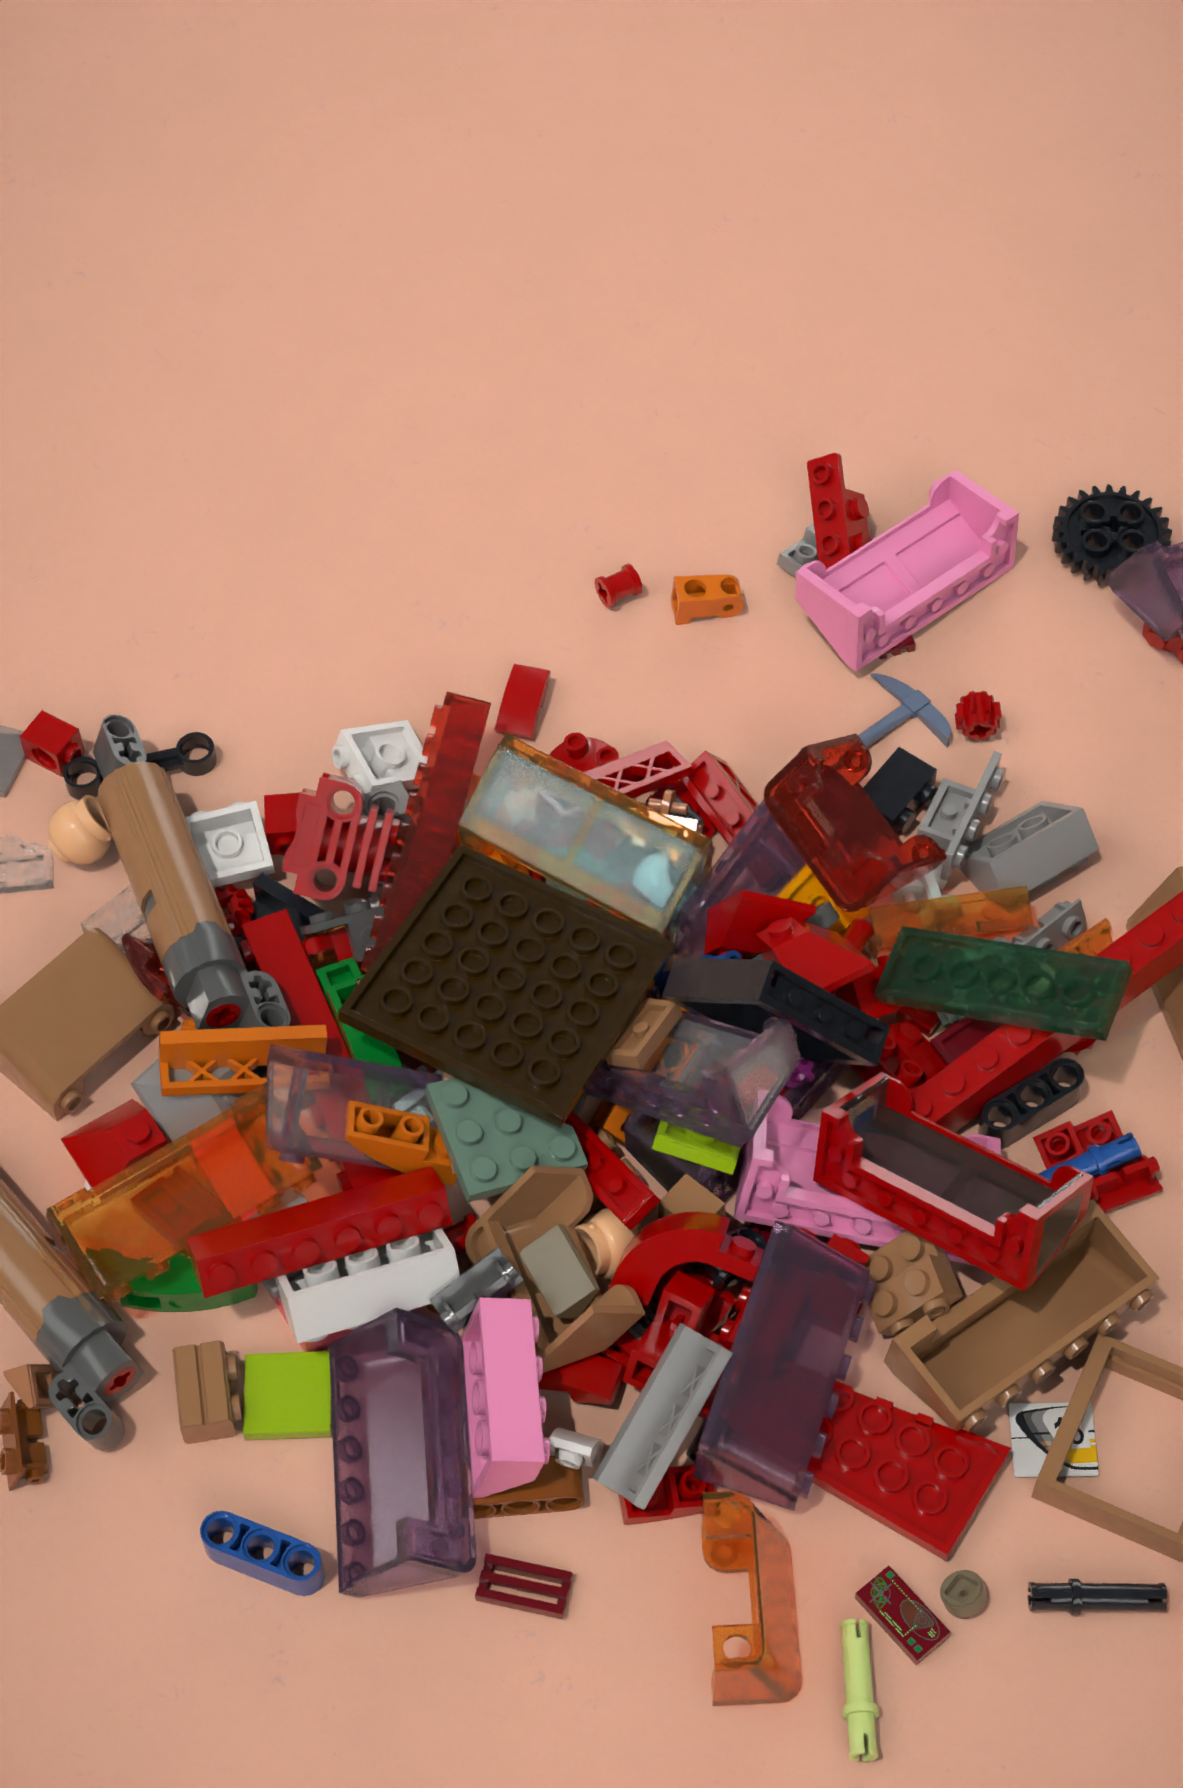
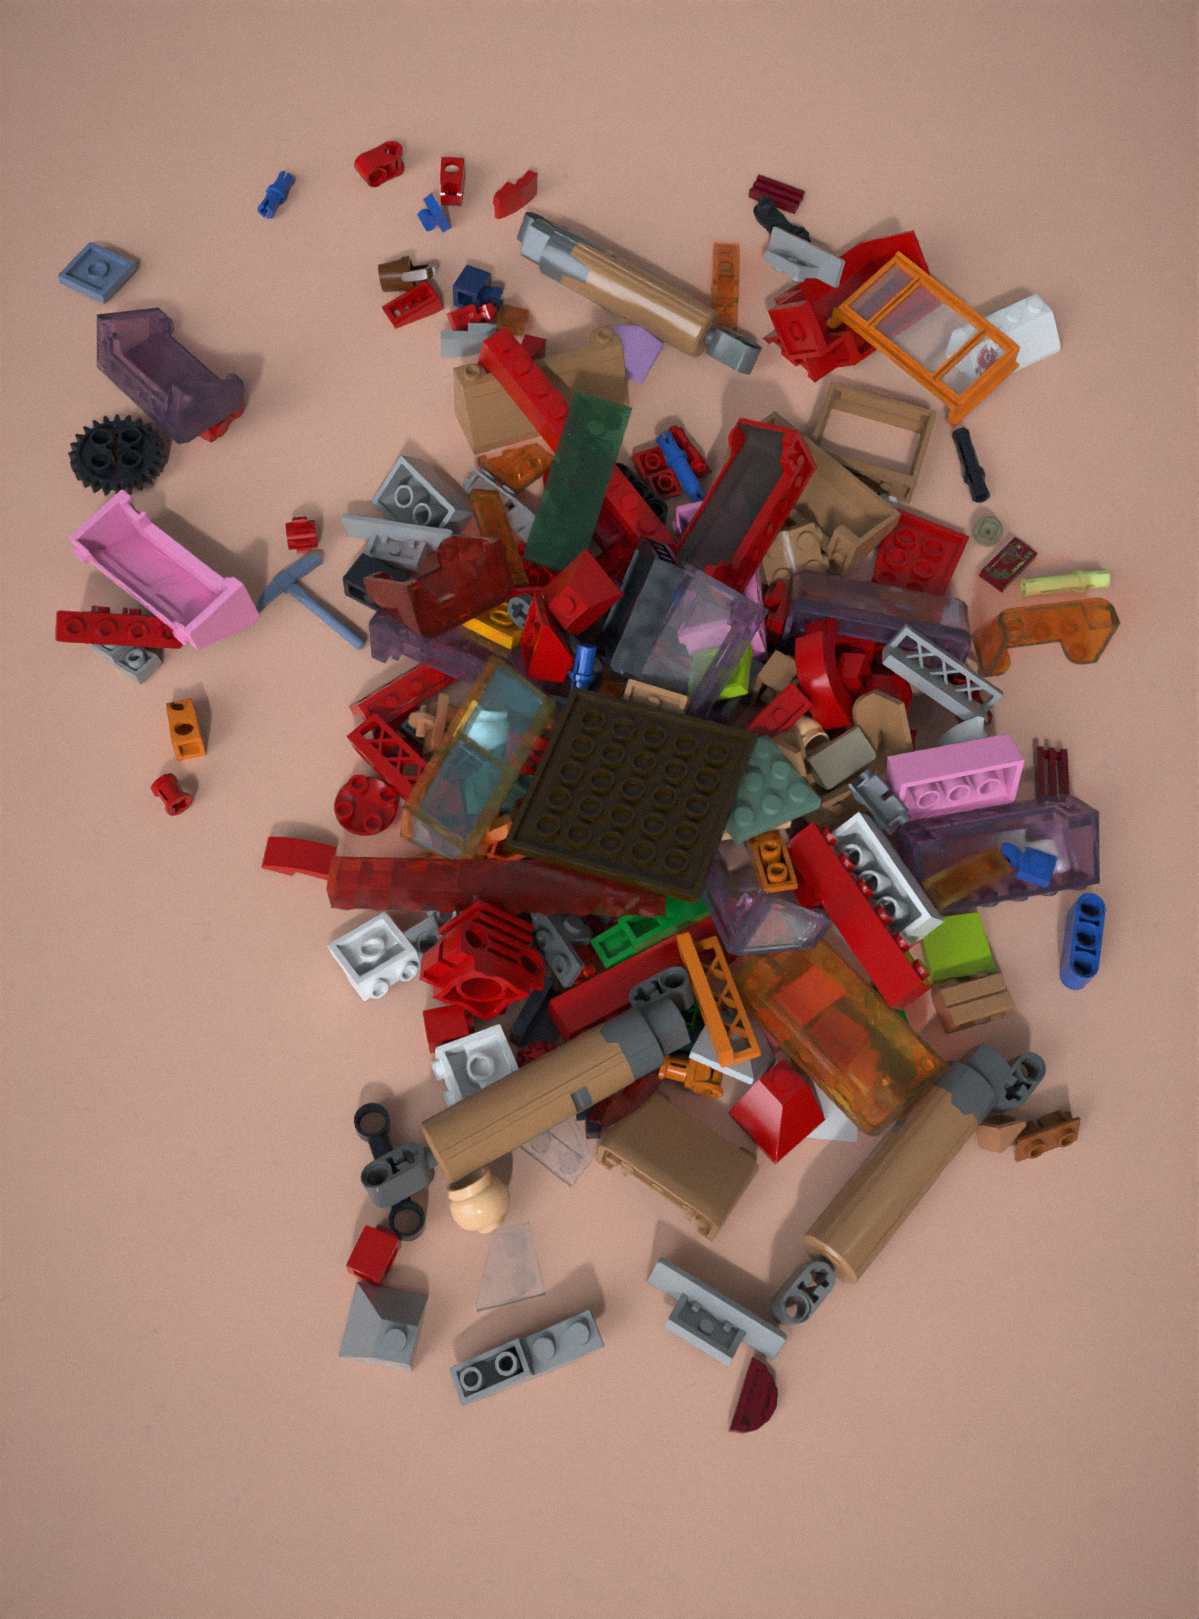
camera: 105 degrees left, 5 degrees up
(363, 1399) = (967, 878): none -> clear orange slope
(375, 1499) = (1032, 865): none -> blue plate

